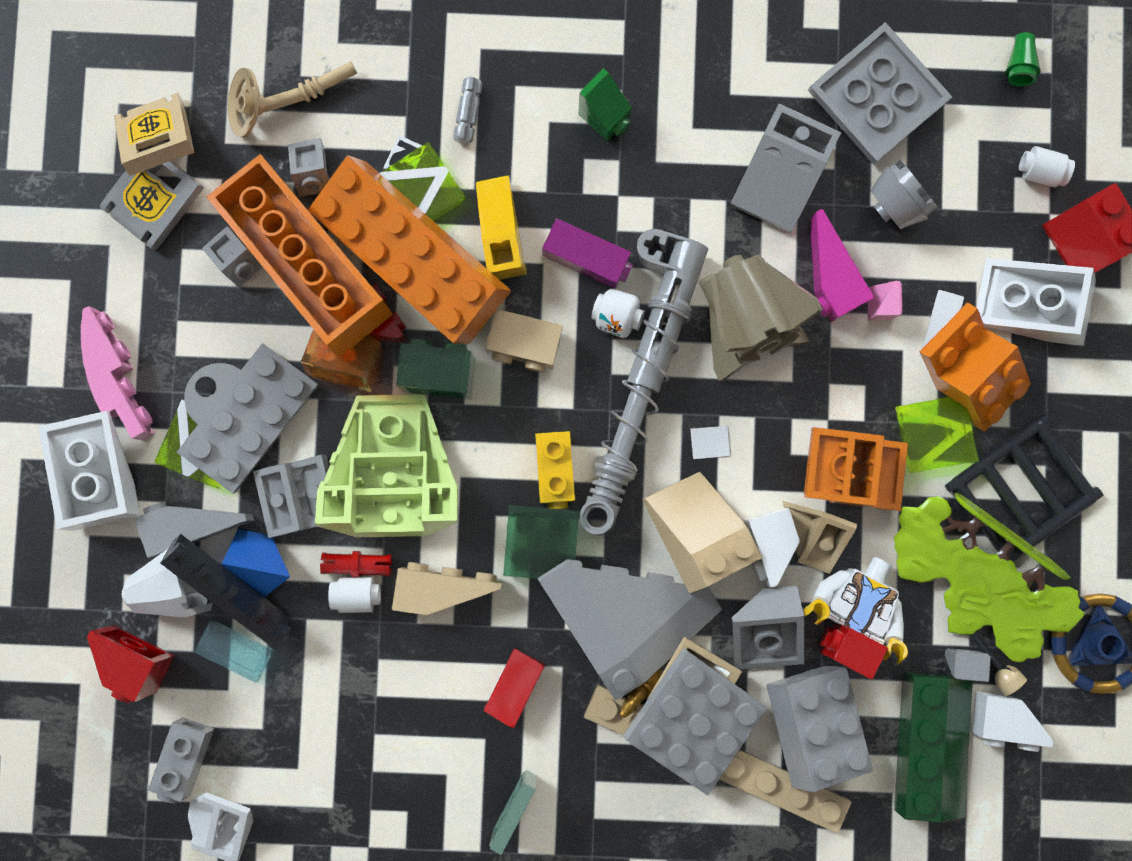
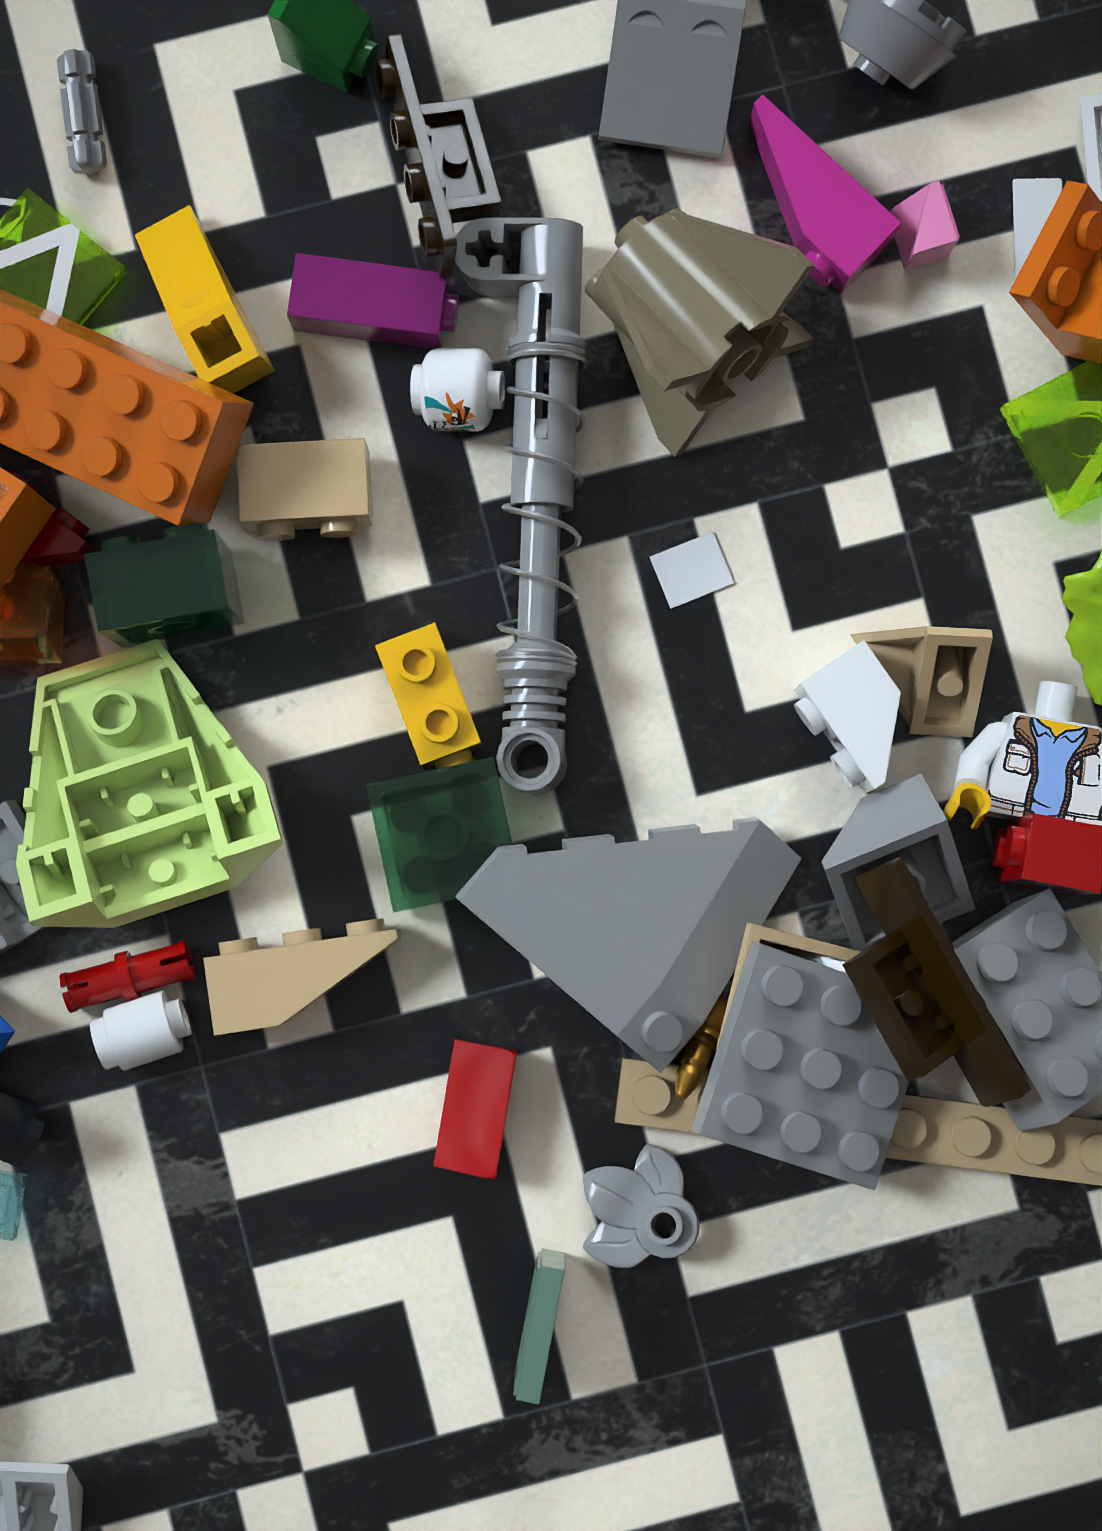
camera: 15 degrees left, 0 degrees up
(578, 763) = (630, 1205): none -> light grey plate
(647, 193) = (445, 158): none -> bracket
(701, 532) = (721, 730): tan slope -> none
(764, 703) = (925, 995): none -> dark brown bracket
(855, 469) = (960, 535): orange bracket -> none

